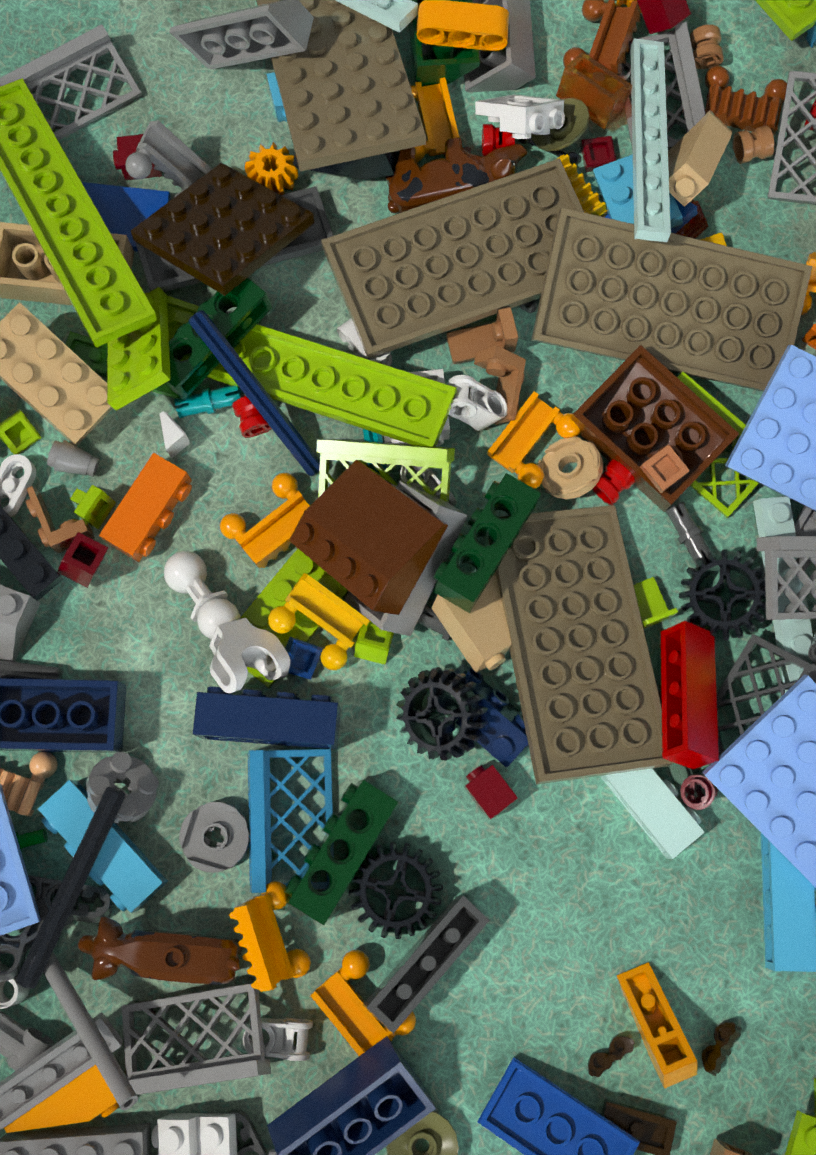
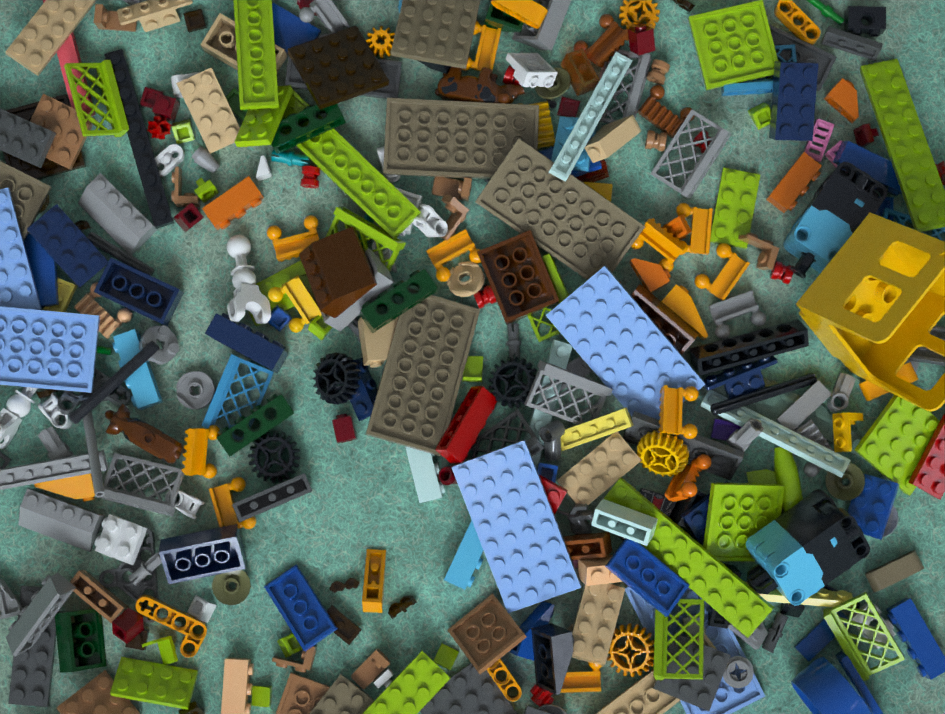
camera: 30 degrees right, 5 degrees up
(255, 392) = (315, 167): dark blue axle -> none
(664, 468) = (508, 302): nougat plate -> none

